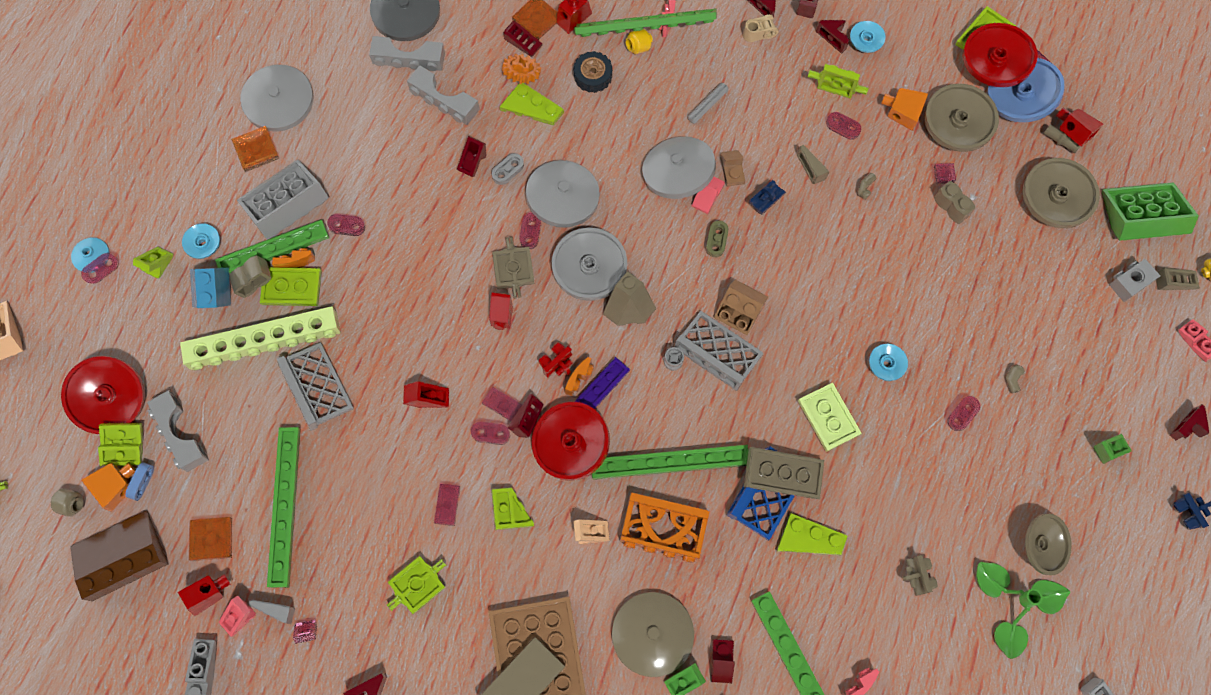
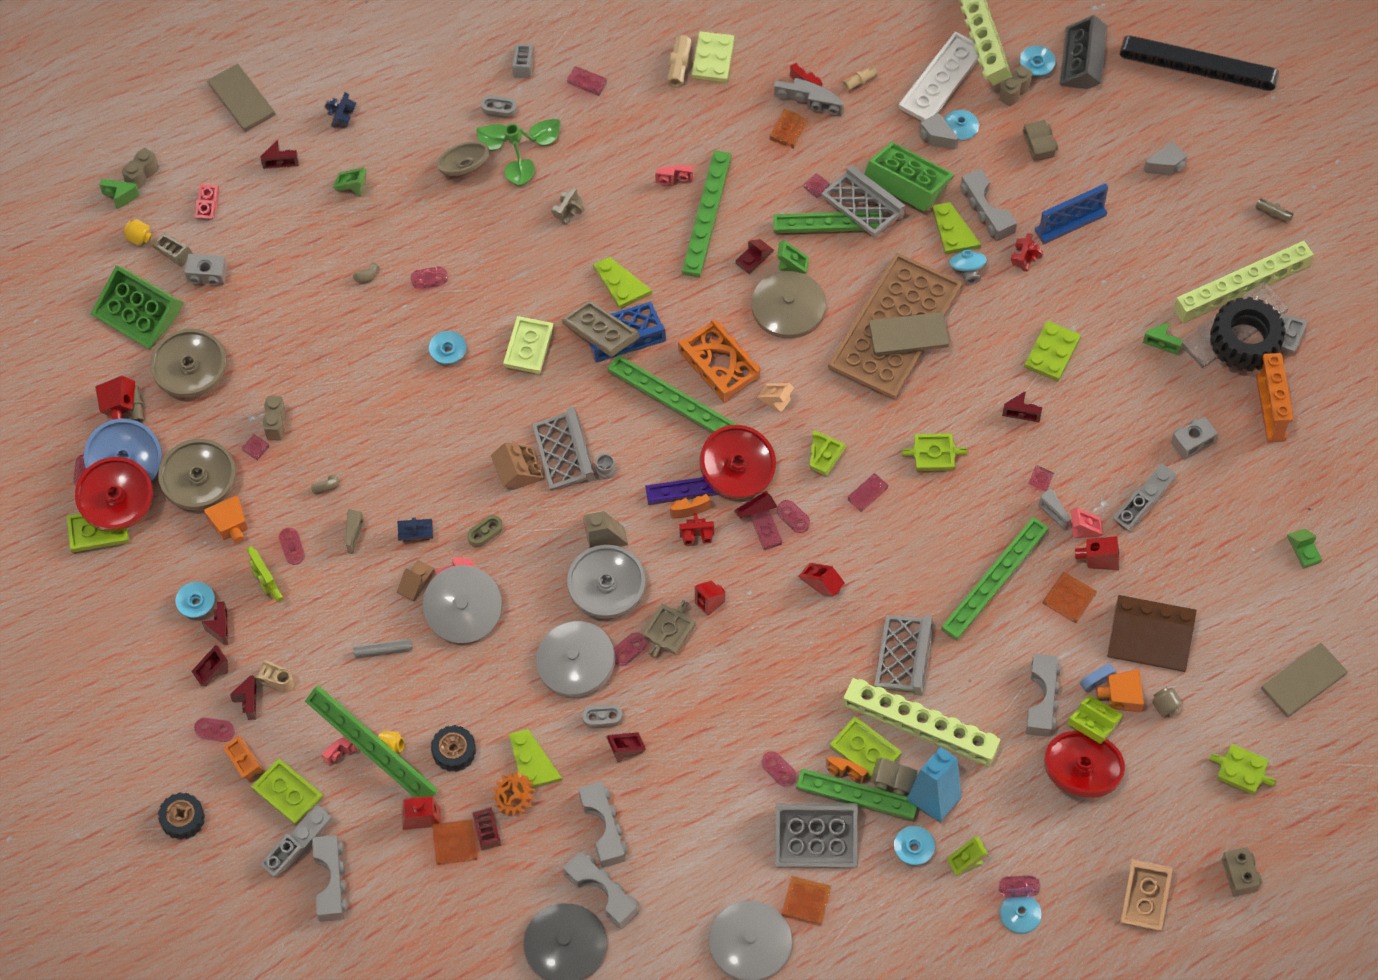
camera: 140 degrees left, 10 degrees down
(1073, 631) = (499, 106): none -> light grey plate

